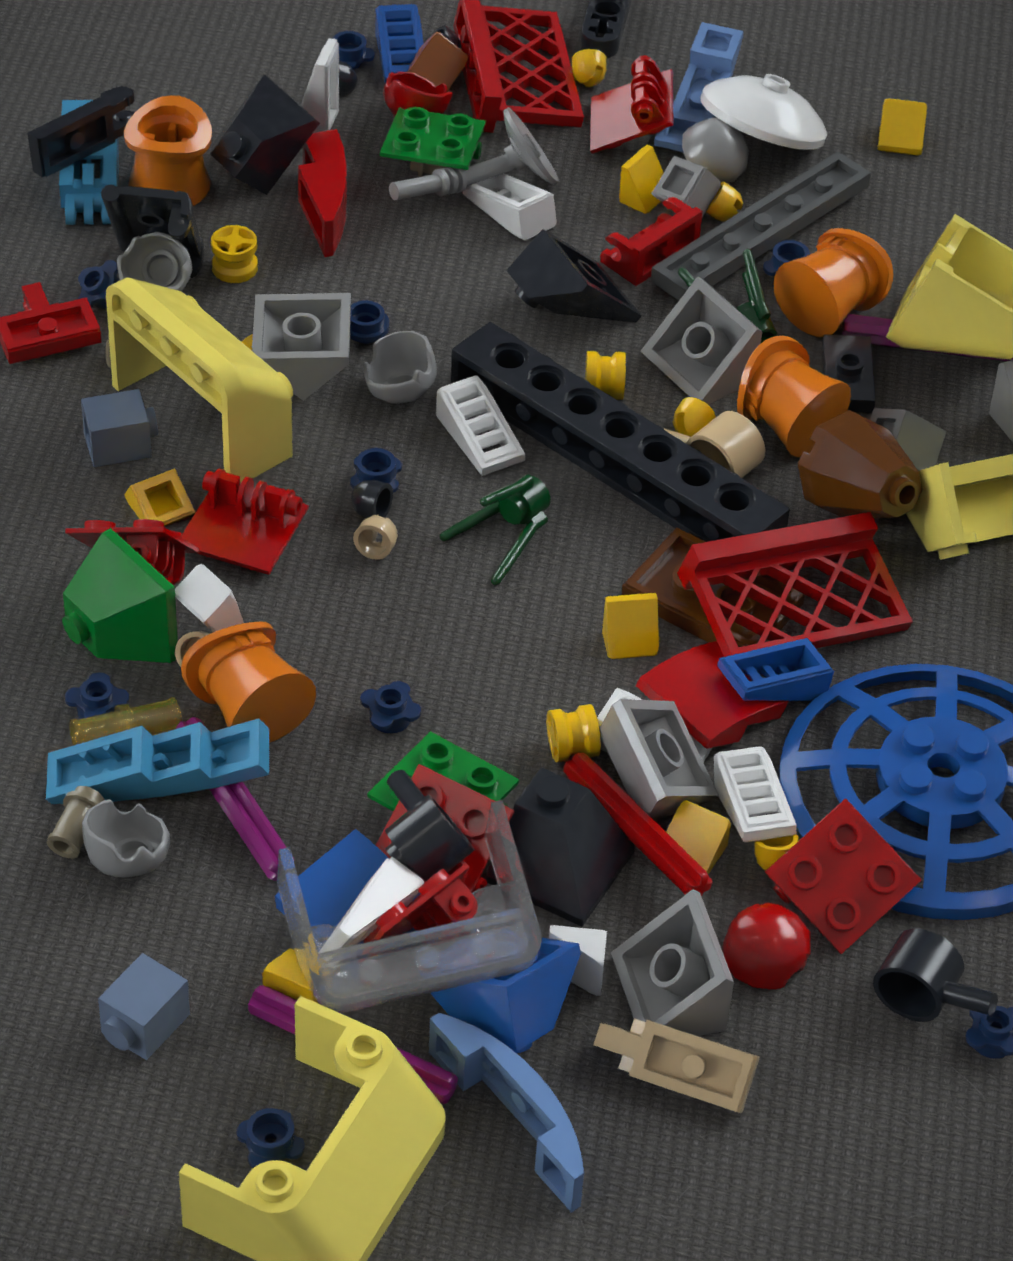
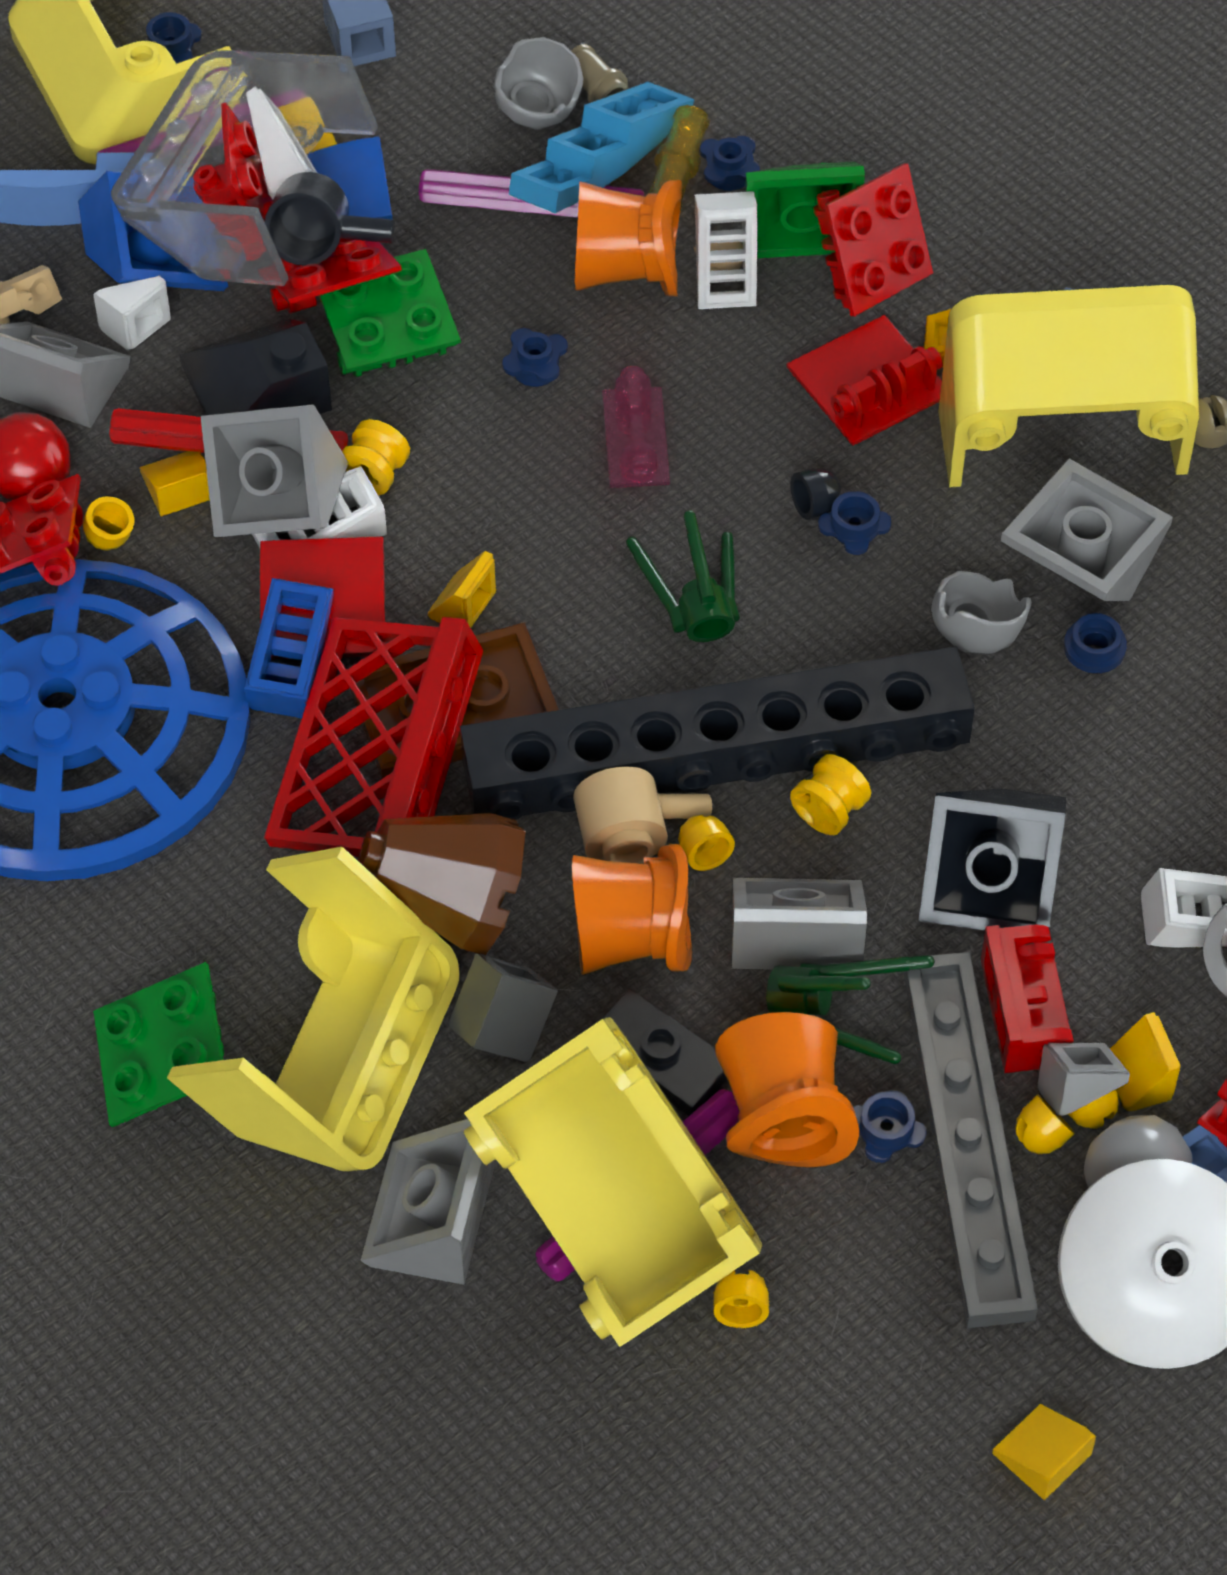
camera: 130 degrees right, 10 degrees up
(366, 534) = (761, 468): tan hinge -> none
(411, 614) = (635, 431): none -> clear pink hinge
(472, 398) = (871, 628): white slope -> none
(752, 788) = (177, 562): white slope -> none

